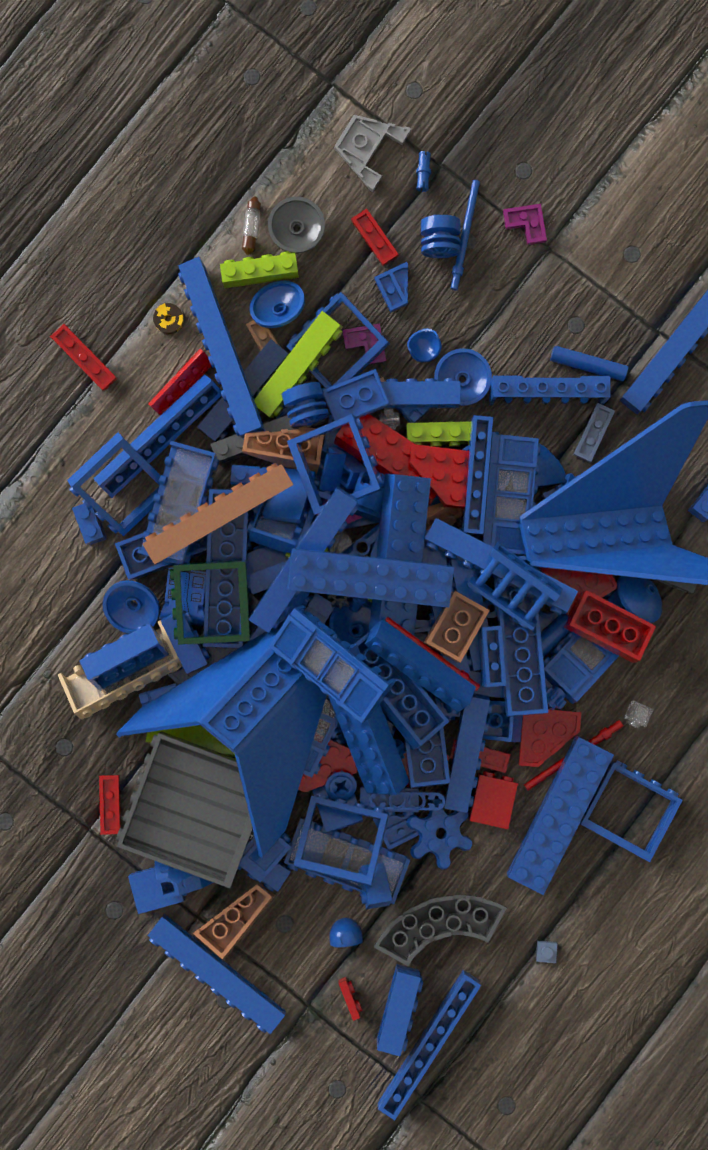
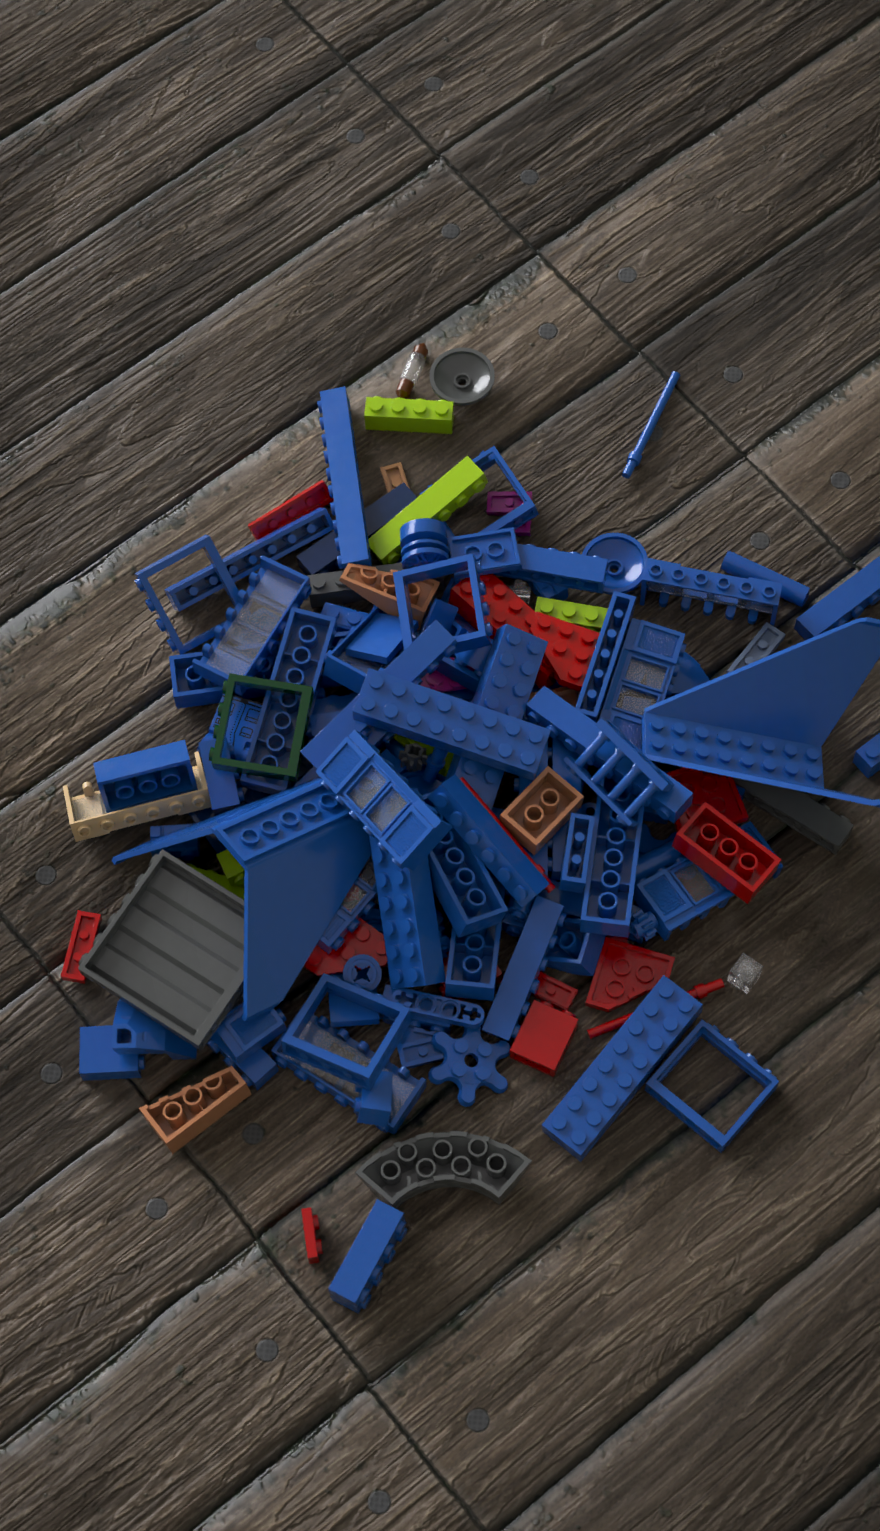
camera: 15 degrees right, 20 degrees down
(83, 357) = (189, 467): red plate -> none
(89, 524) = (146, 636): blue brick -> none
(126, 614) = (160, 716): blue dish -> none
(174, 324) = (298, 454): dark brown piece -> none
(217, 974) = (156, 1171): blue brick -> none
(218, 513) = (295, 631): nougat brick -> none
(277, 304) = (420, 451): blue dish -> none
(345, 933) = (325, 1154): blue helmet -> none
(361, 141) = (557, 310): light grey wing -> none
(374, 237) = (547, 407): red plate -> none
(394, 286) = (558, 460): blue wing -> none
(423, 171) = (618, 352): blue pin -> none
(424, 345) = (578, 525): blue helmet -> none
(428, 1044) = (395, 1310): blue brick -> none
(440, 236) = (621, 416): blue wheel -> none
(528, 217) = (728, 419): magenta plate -> none
(546, 951) = (571, 1235): sand blue plate -> none
(640, 597) = (774, 833): blue dish -> none

